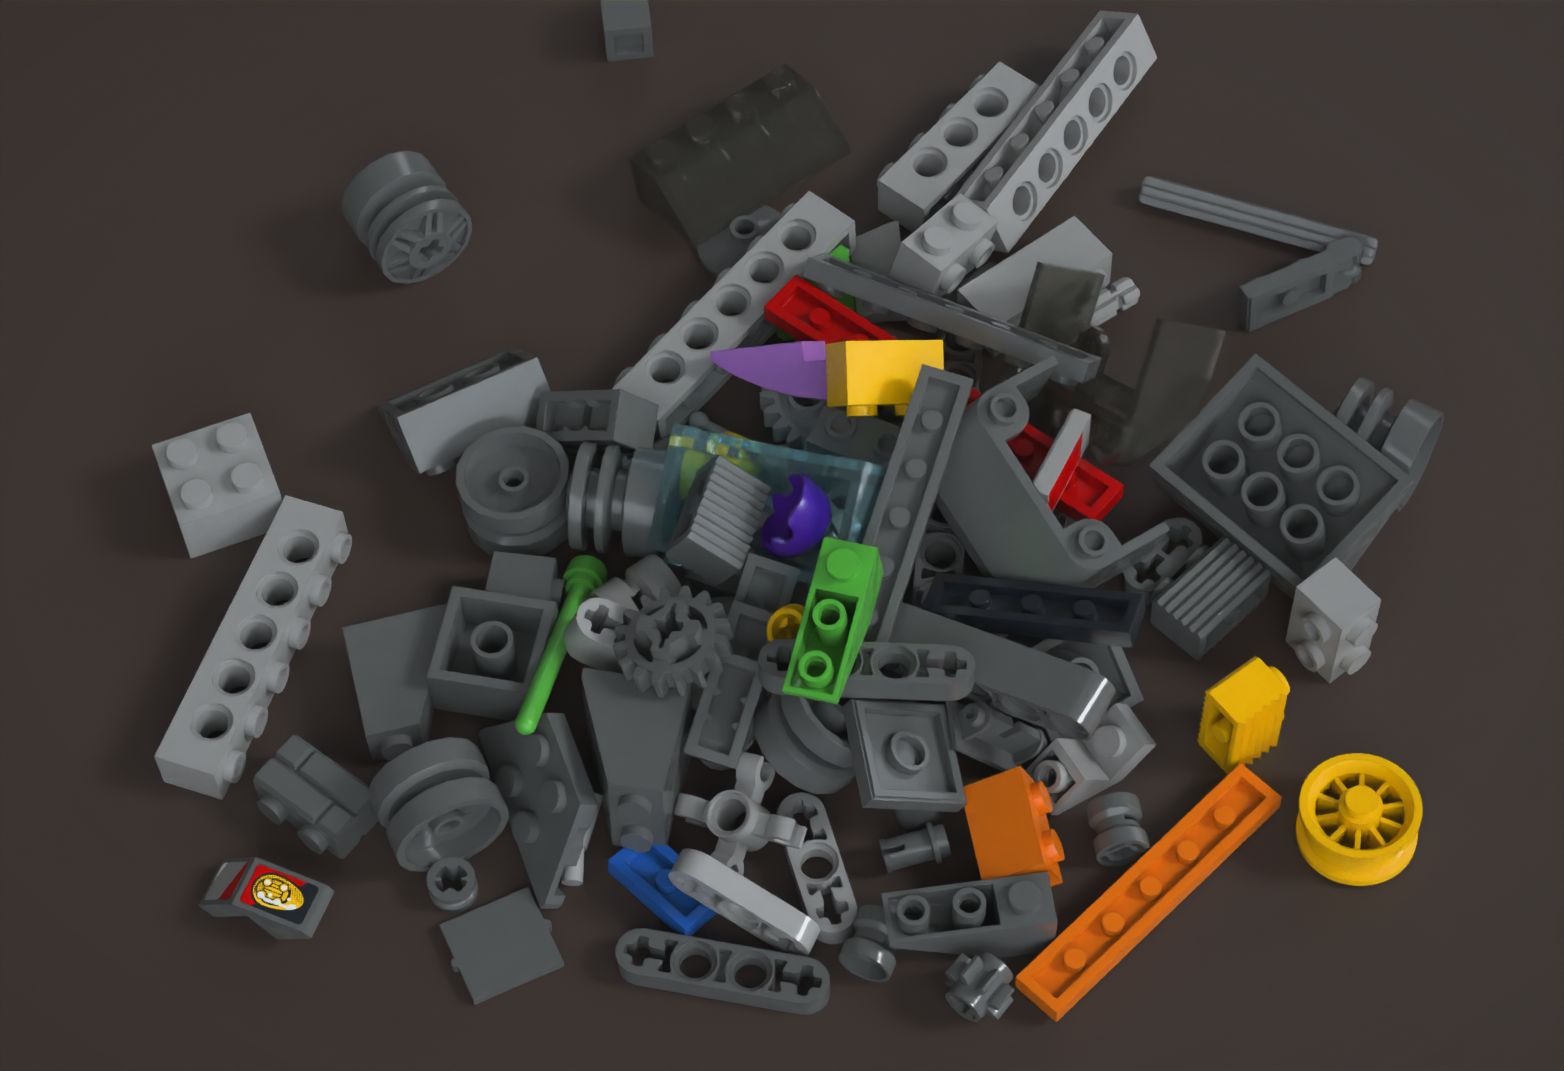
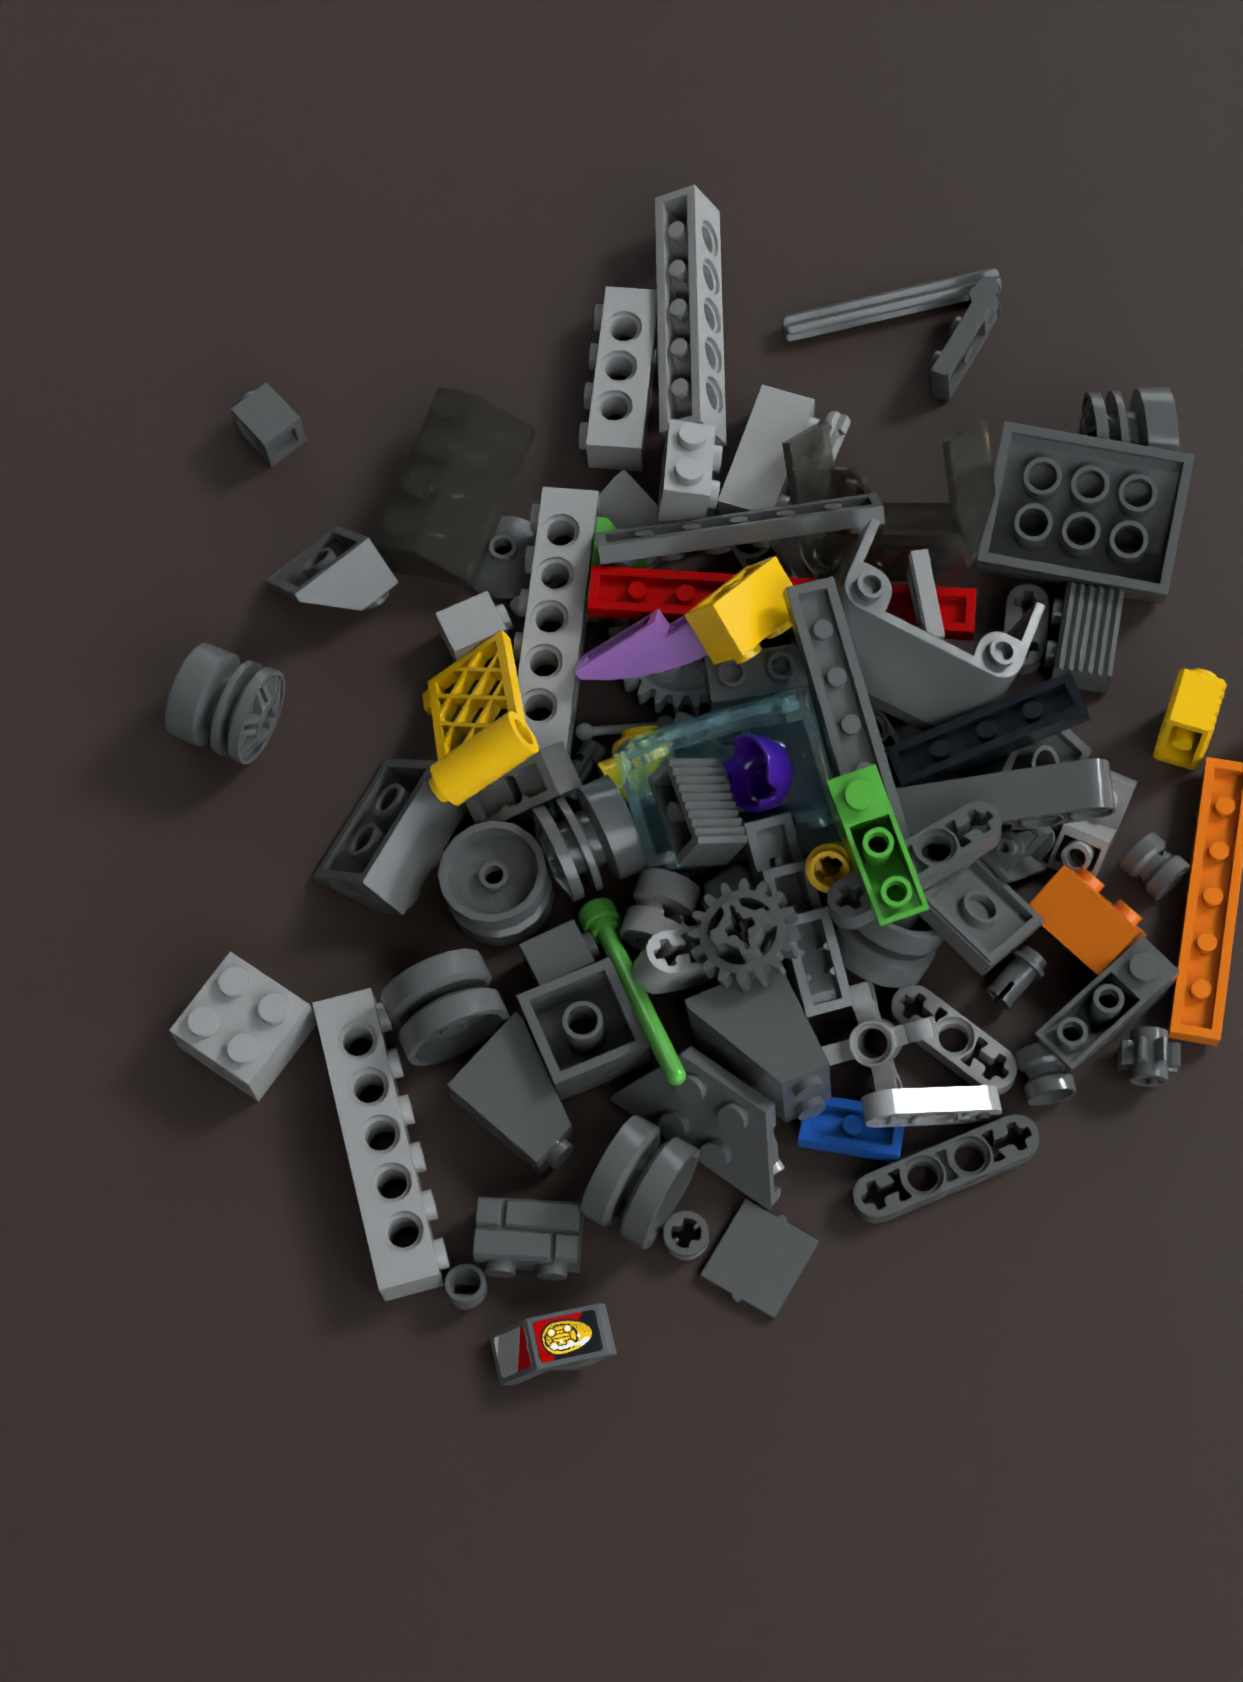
camera: 30 degrees left, 10 degrees up
(239, 802) = (466, 1279): none -> dark grey hinge
(388, 560) = (444, 1007): none -> dark grey wheel
(586, 173) = (336, 572): none -> slope
(594, 349) = (490, 745): none -> yellow piece
(665, 281) = (471, 624): none -> light grey brick
(1333, 621) = (1200, 602): light grey brick -> none

